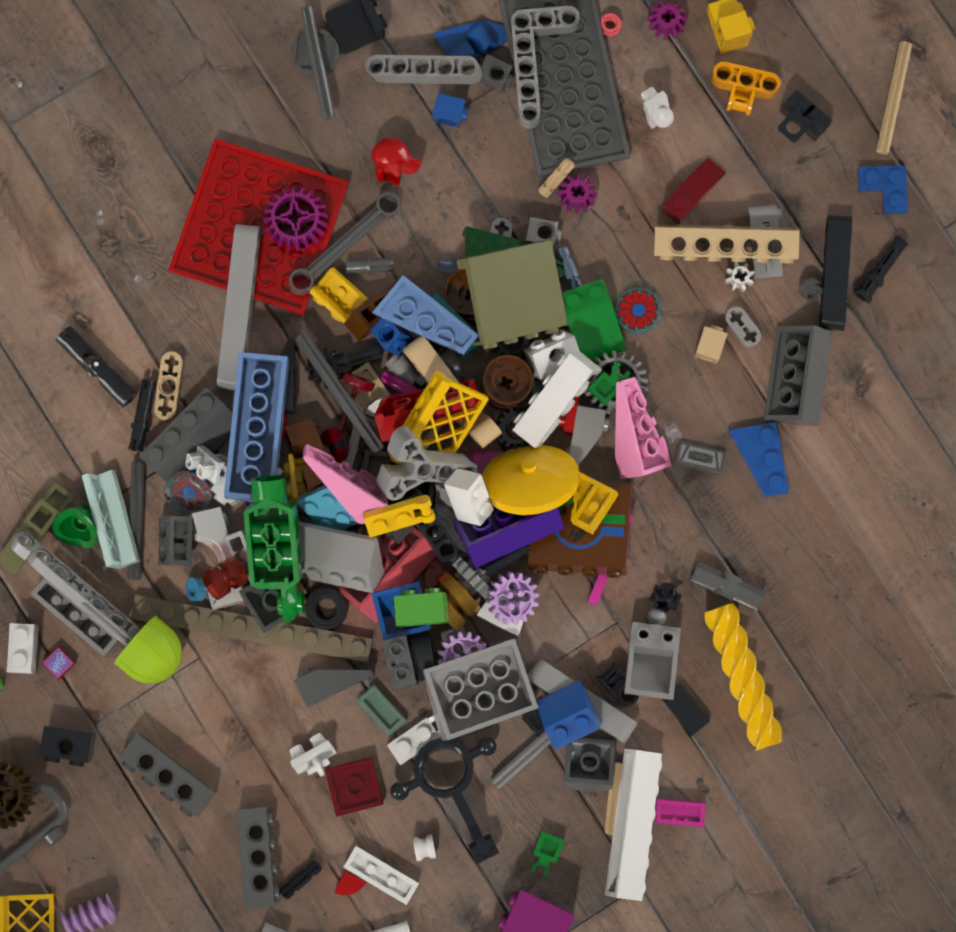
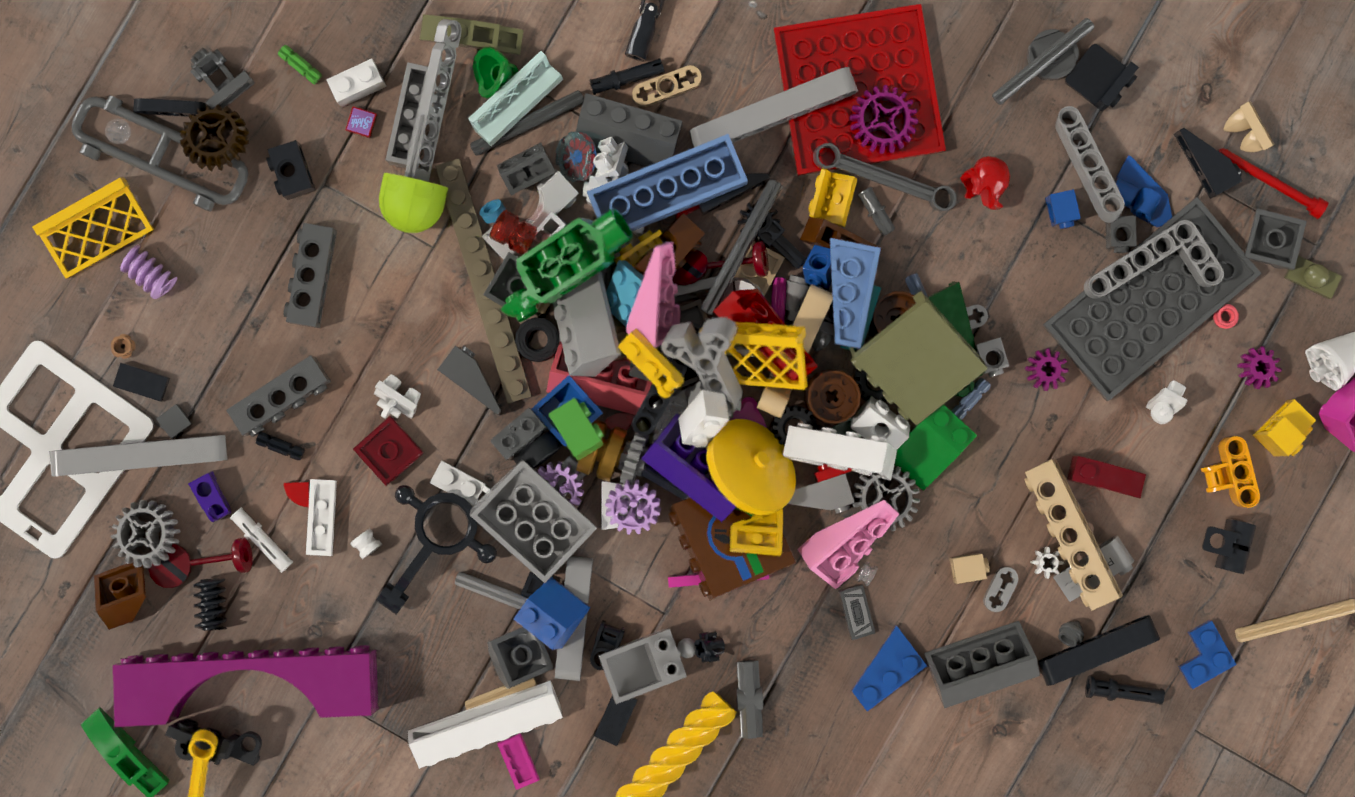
camera: 60 degrees right, 5 degrees up
(381, 710) = (471, 439): sand green tile -> none
(547, 849) = (421, 656): green plate -> none
(556, 177) = (1051, 342): tan axle -> none
(605, 386) = (875, 491): green plate -> none
(638, 310) = (965, 483): tile -> none

